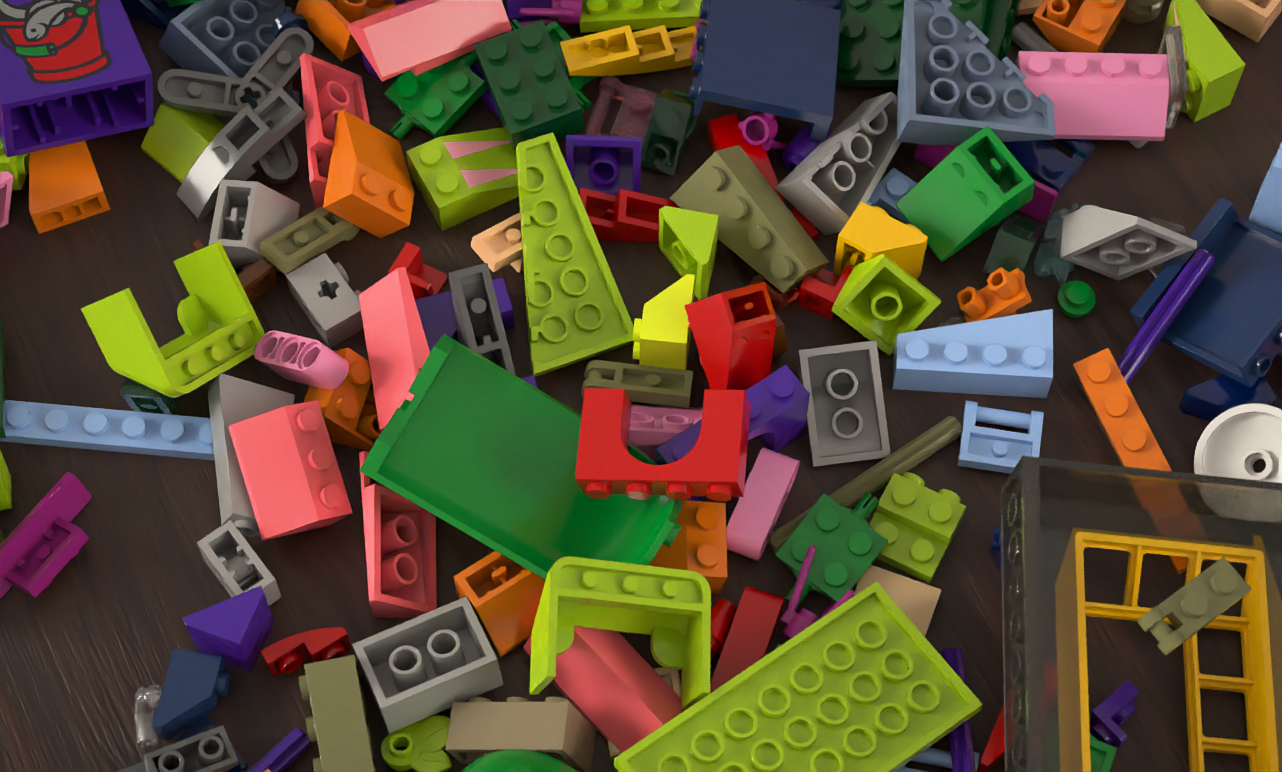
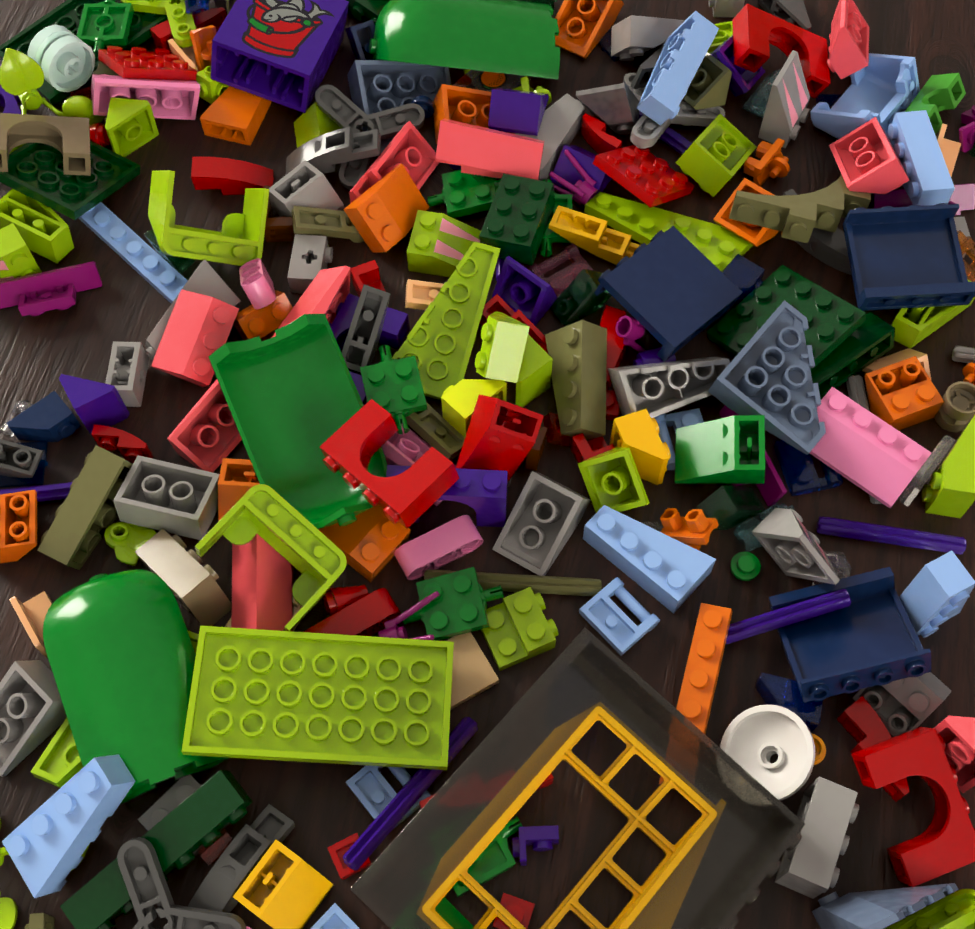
camera: 40 degrees right, 0 degrees up
(132, 259) = (229, 175): none -> red slope
(565, 362) = (395, 386): none -> green plate
(654, 239) = (501, 348): none -> lime slope
(1183, 167) = (891, 535): none -> dark purple axle
(1195, 605) = (613, 809): olive plate -> none

